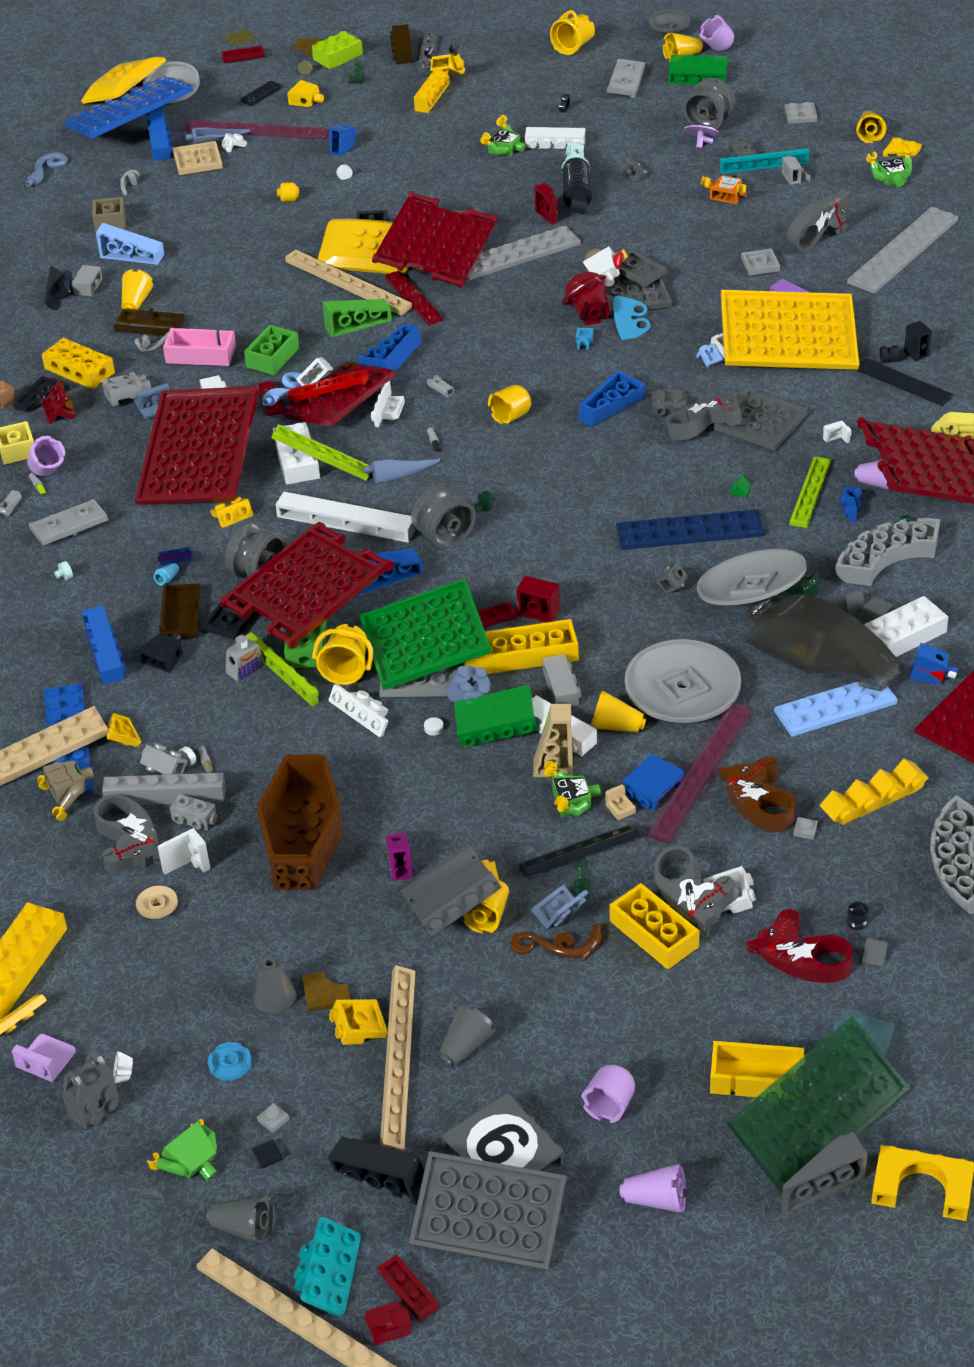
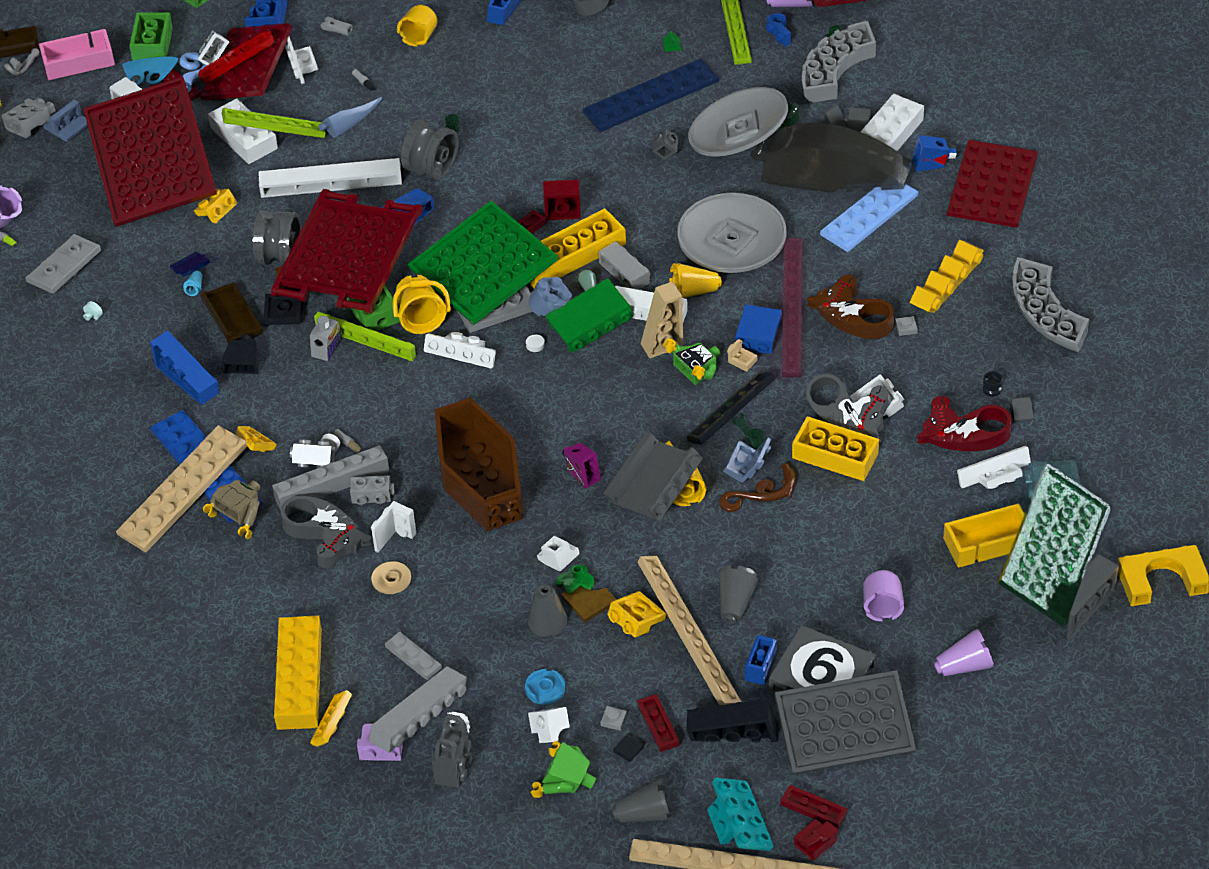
camera: 25 degrees left, 5 degrees up
(94, 1034) = (417, 709): none -> light grey brick
(129, 984) = (413, 655): none -> light grey plate
(204, 1098) = (548, 723): none -> white brick
(261, 375) = (159, 65): none -> dark azure piece
(310, 1139) = (658, 723): none -> dark red plate
(322, 934) = (557, 553): none -> white brick
(327, 964) = (575, 577): none -> green plate
(446, 1112) = (760, 659): none -> blue brick
(518, 679) = (587, 279): none -> sand green cone
(808, 1005) = (996, 469): none -> white bracket

